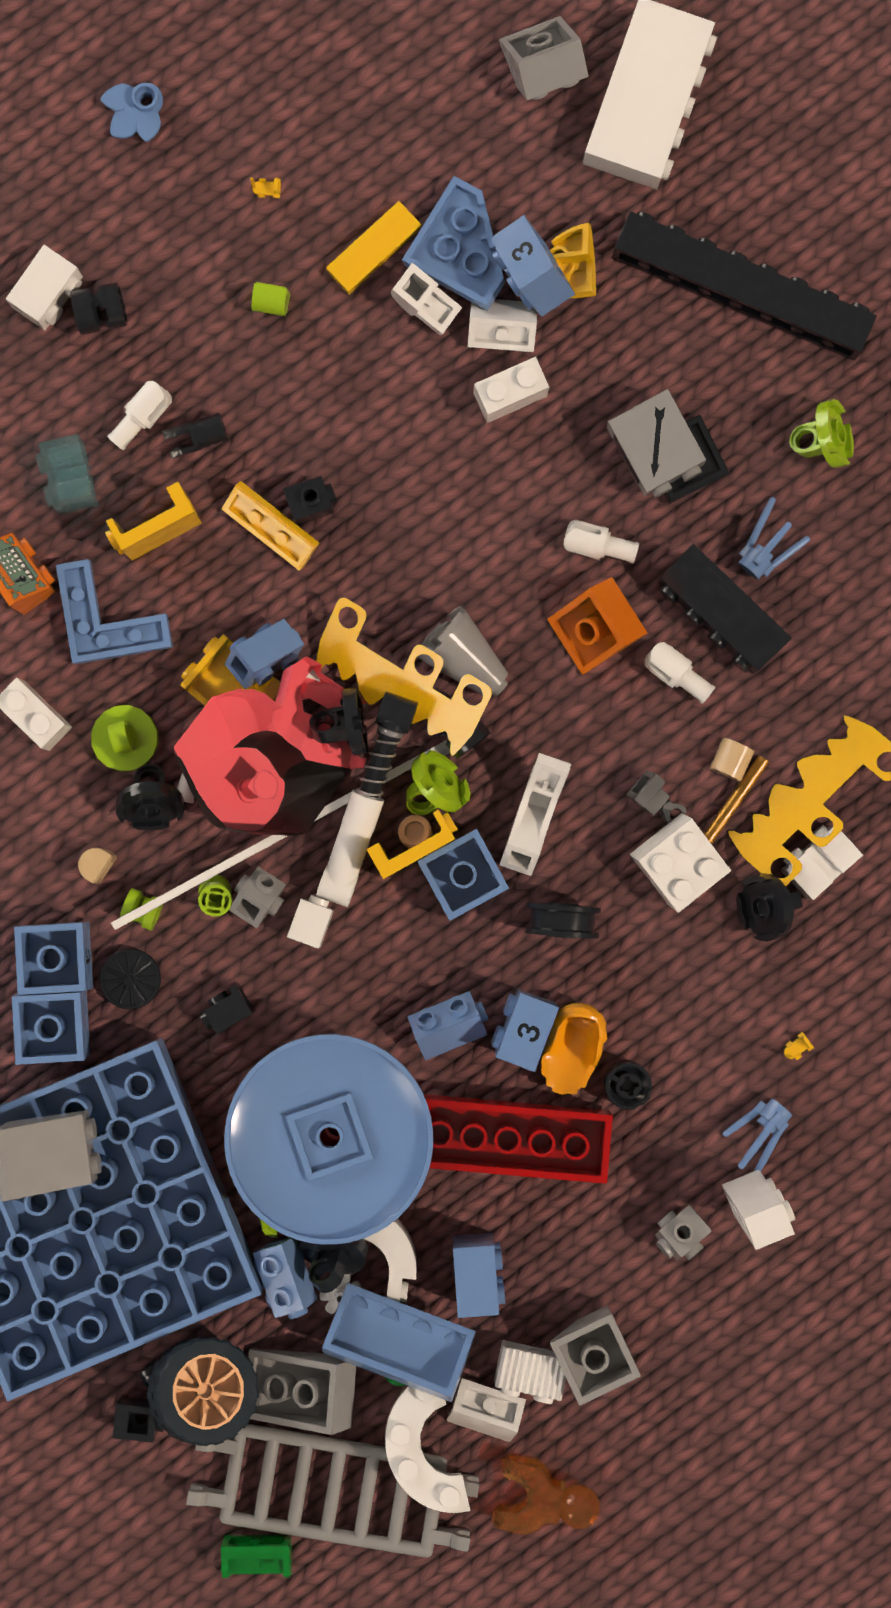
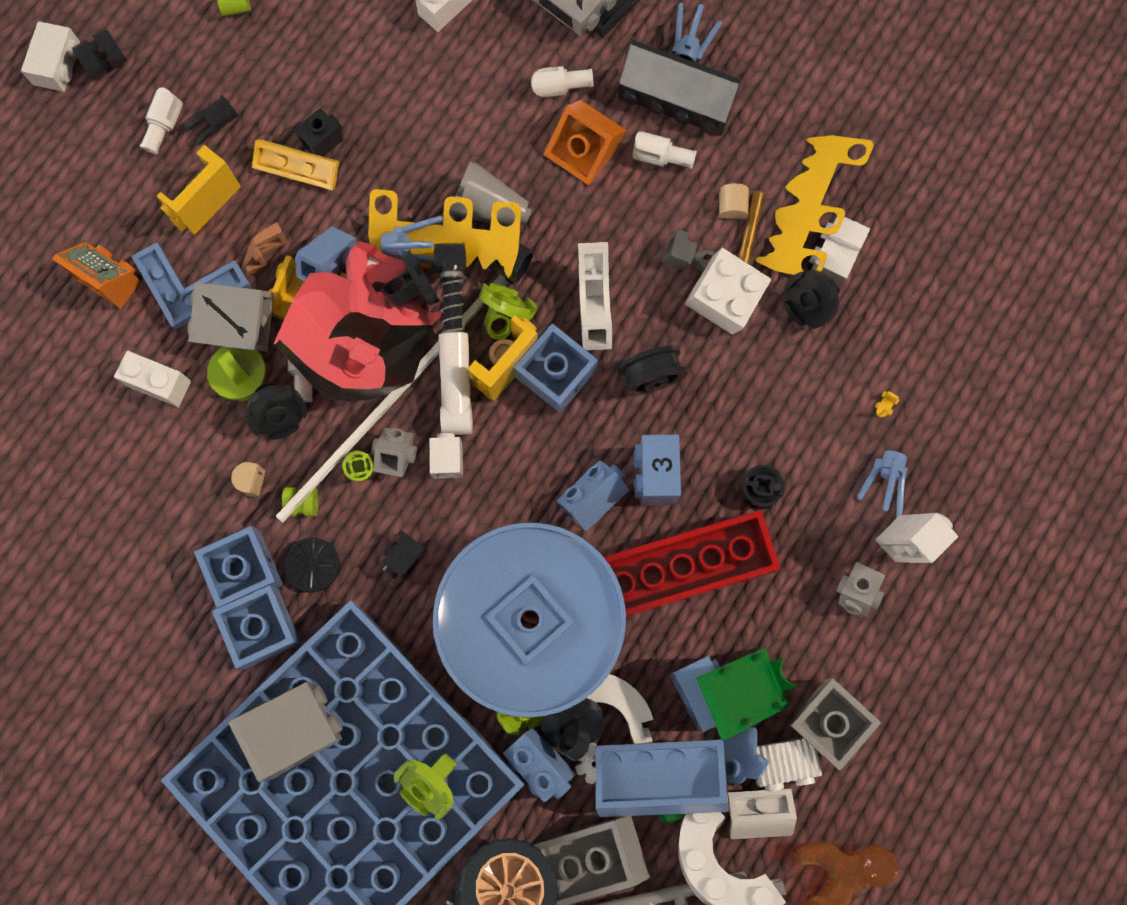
camera: 15 degrees left, 10 degrees down
(68, 474) = (118, 186): clear light blue brick -> none
(138, 683) = (230, 316): none -> light grey brick
(162, 1263) = (425, 786): none -> lime tile
(188, 615) = (261, 244): none -> nougat slope
(348, 670) = (398, 243): none -> medium blue plant
(489, 1348) = (741, 757): none -> medium blue plate
(517, 1293) = (745, 692): none -> green piece
(573, 1048) = (704, 472): light orange hair -> none

